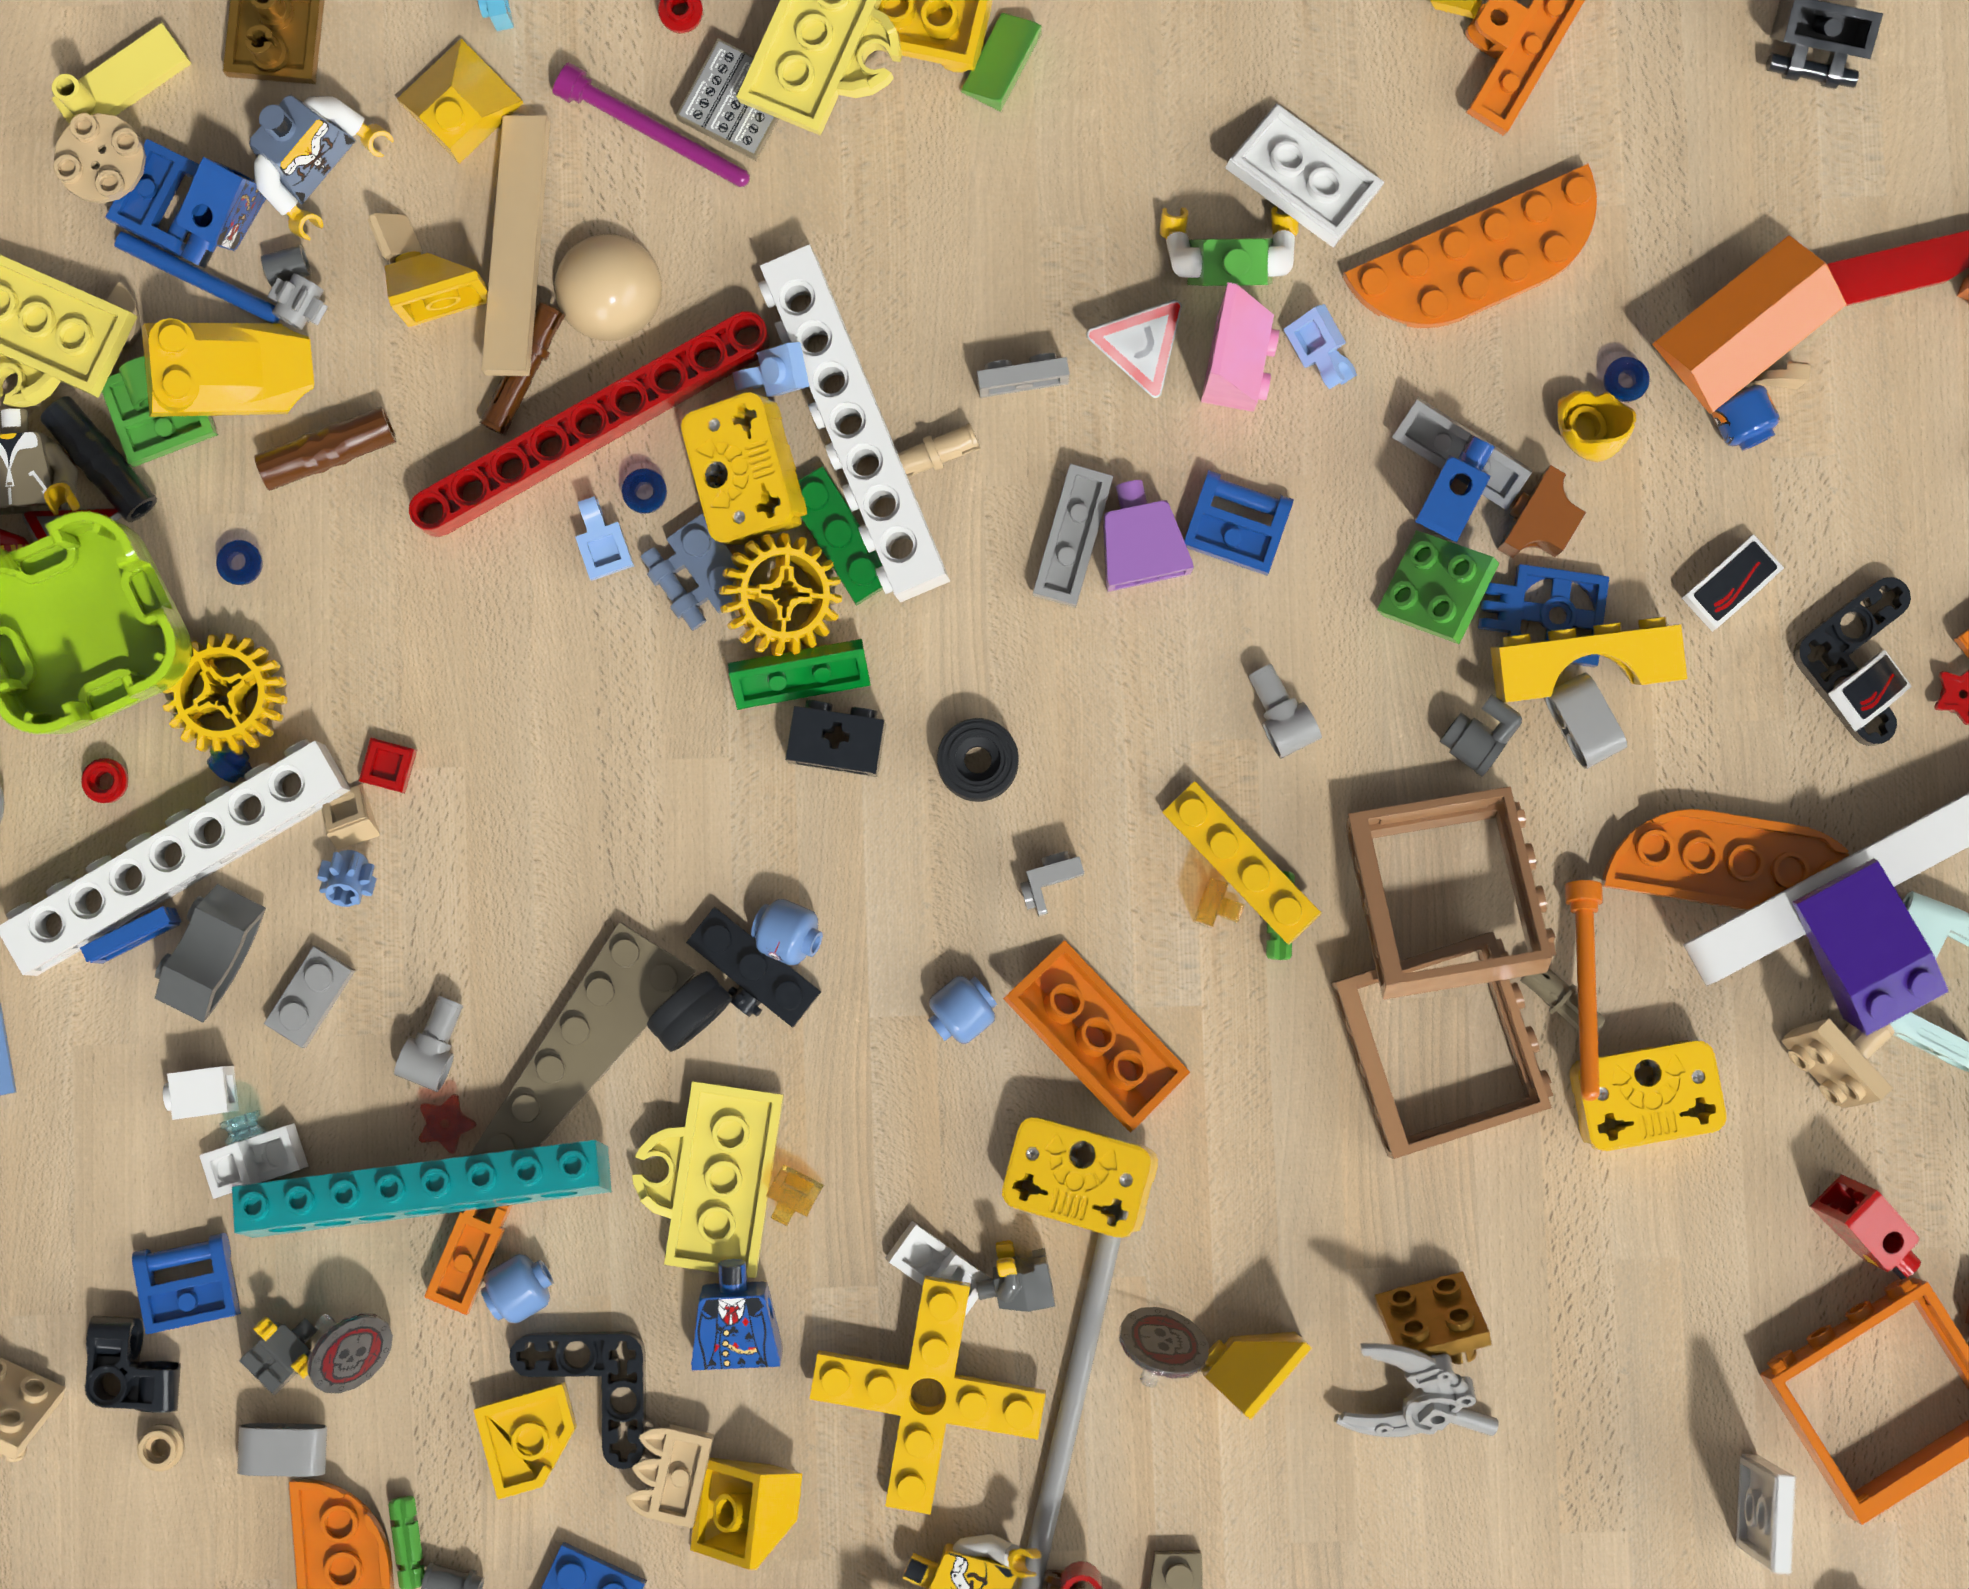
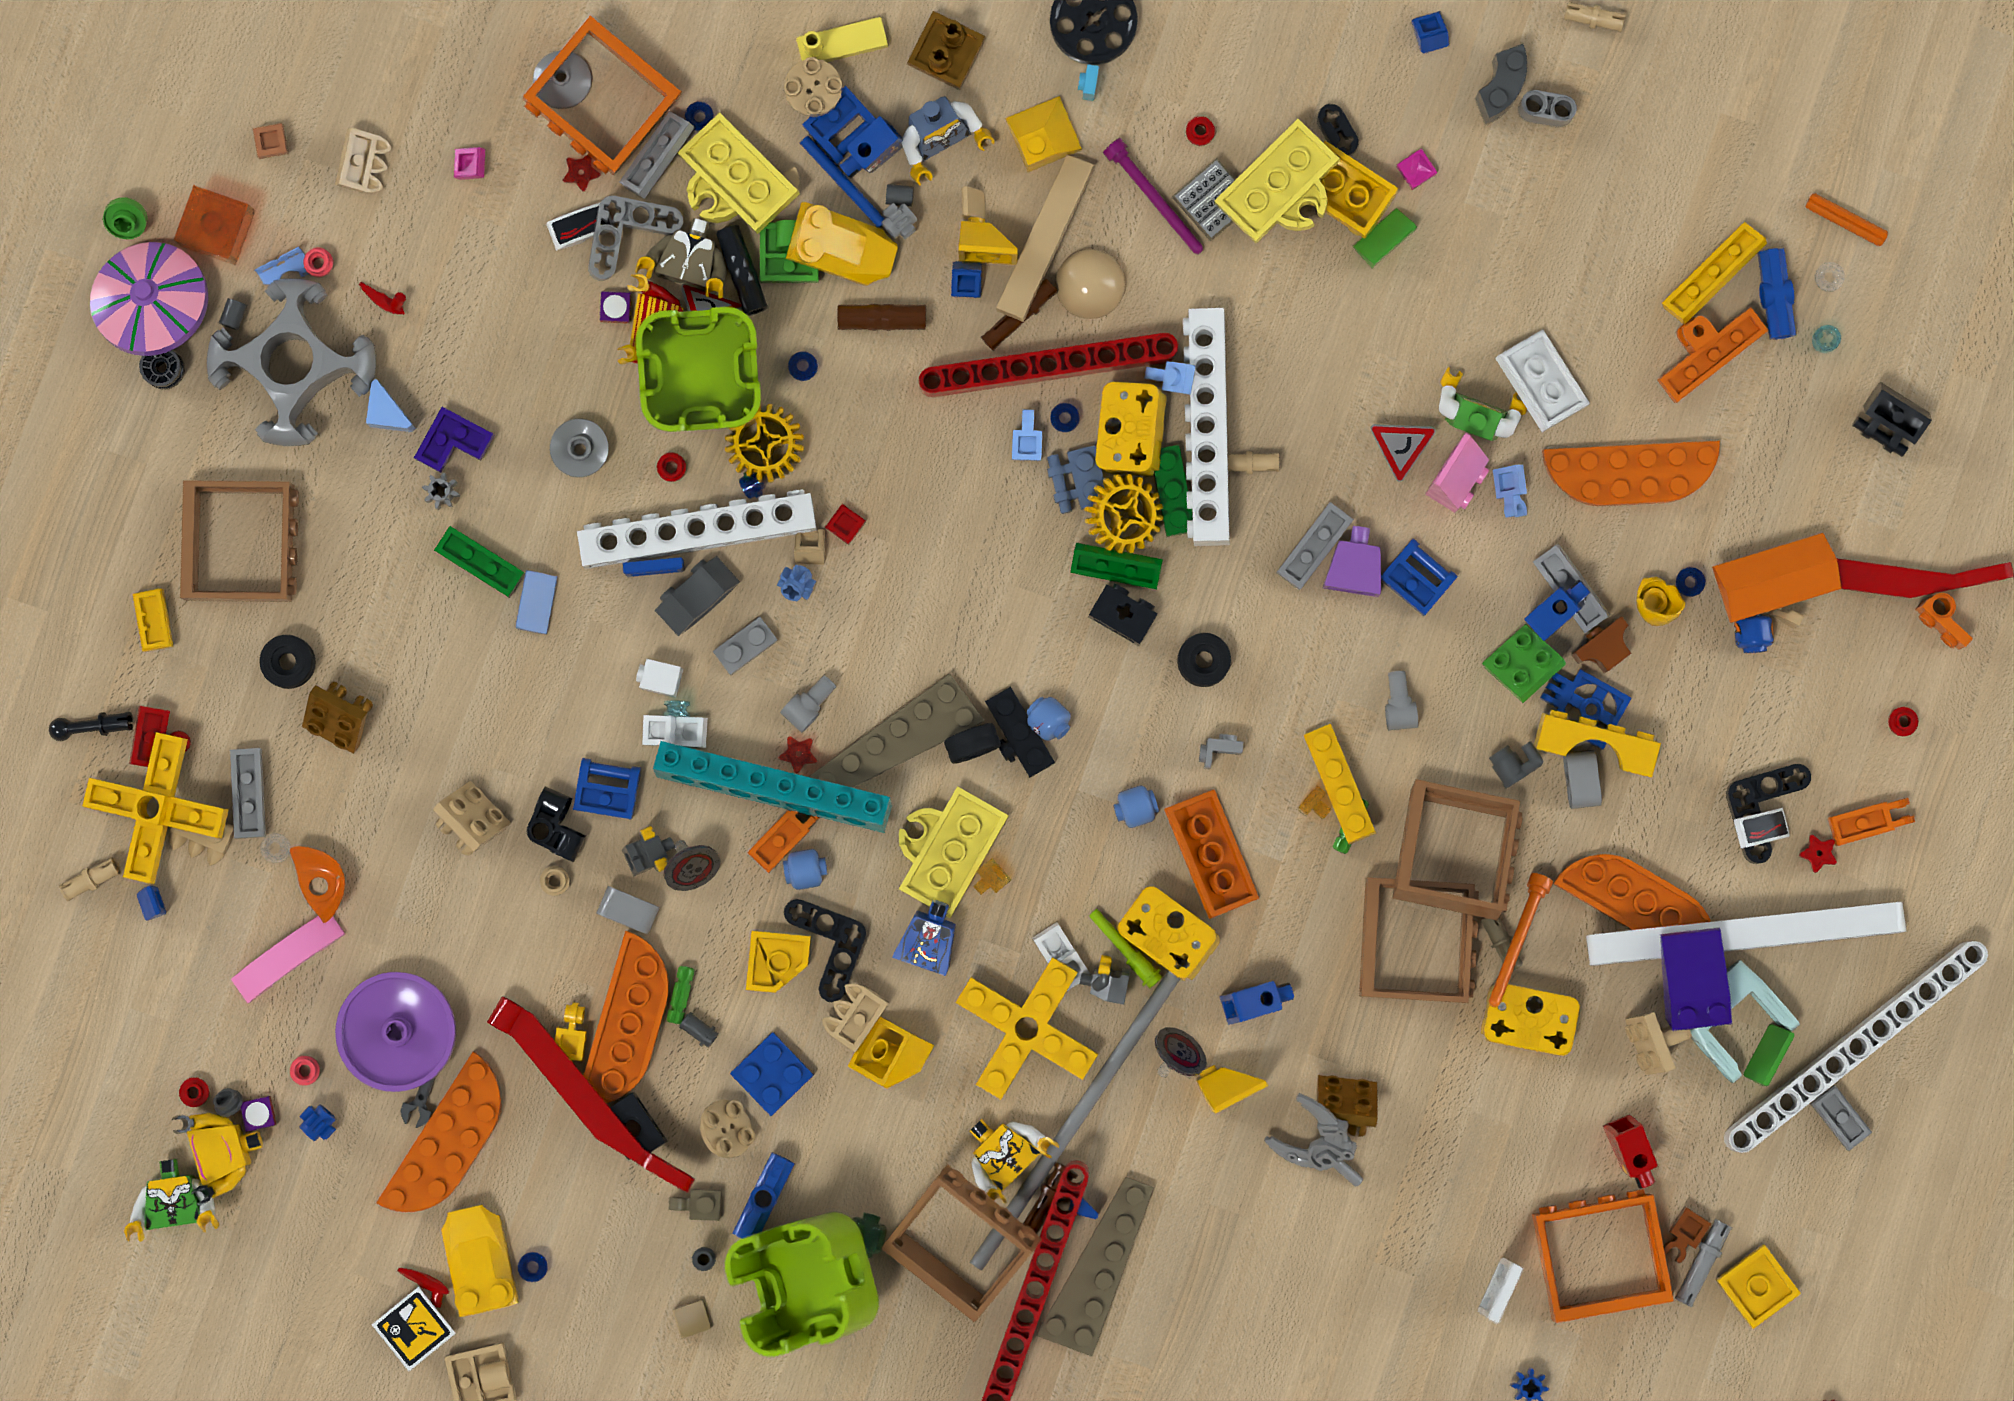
camera: 20 degrees right, 0 degrees up
(428, 349) = (966, 279): none -> blue slope
(1004, 378) = (1309, 433): light grey plate -> none
(1047, 1231) = (1136, 960): none -> lime pin
(1228, 1236) = (1246, 1003): none -> blue torso
(1732, 583) = (1705, 731): black slope -> none

